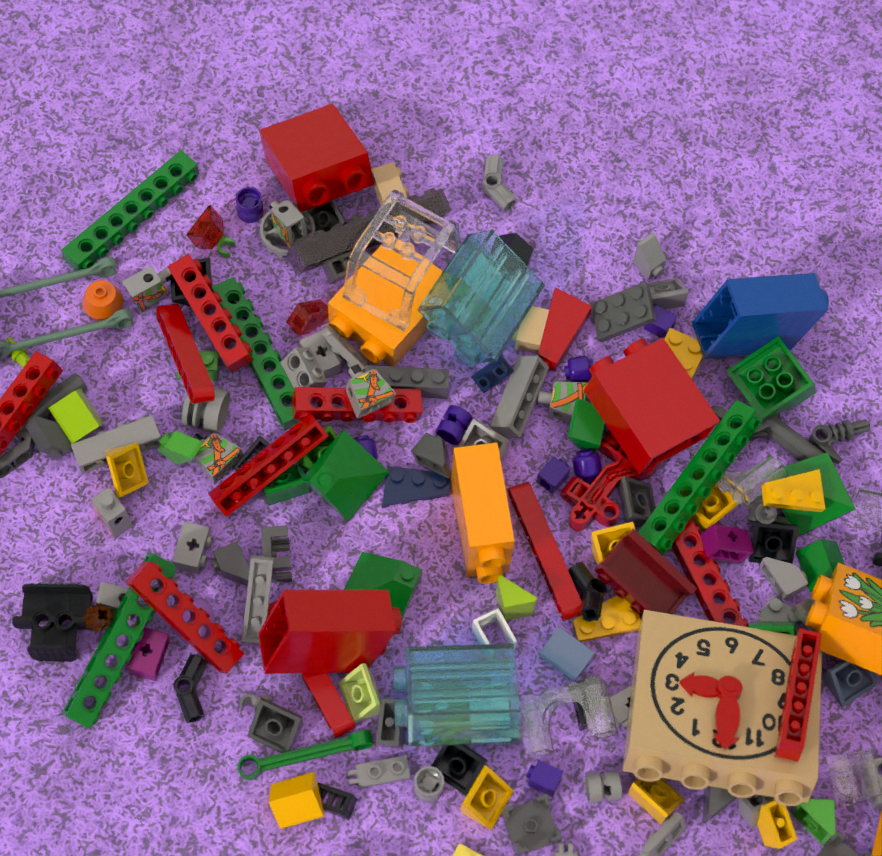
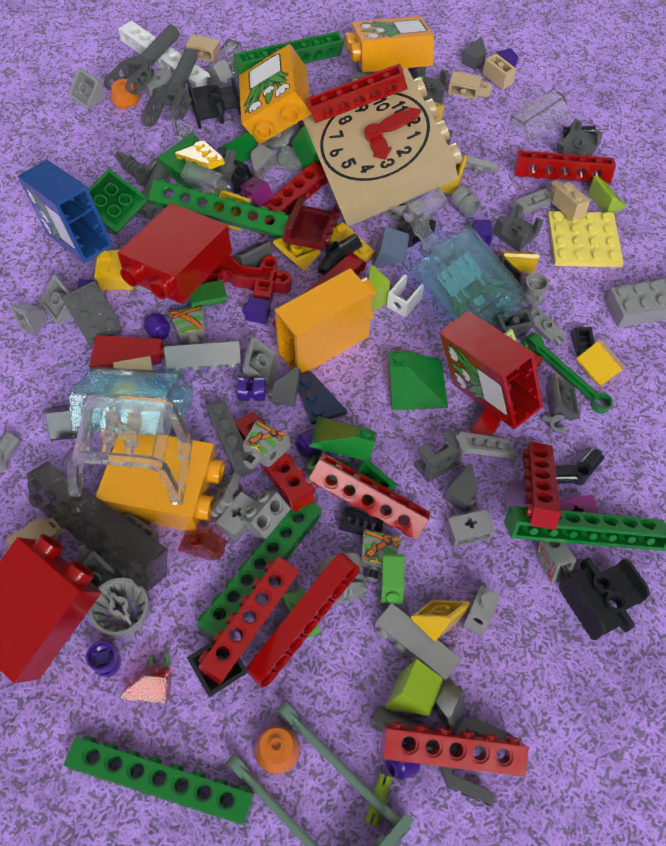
camera: 115 degrees left, 5 degrees down
(96, 612) = (587, 550): reddish brown gear -> none
(148, 286) = (254, 704): light grey torso -> none
(284, 216) = (116, 597): light grey torso -> none
(492, 374) = (198, 383): dark blue hips -> none
(587, 464) = (238, 291): dark purple head -> none

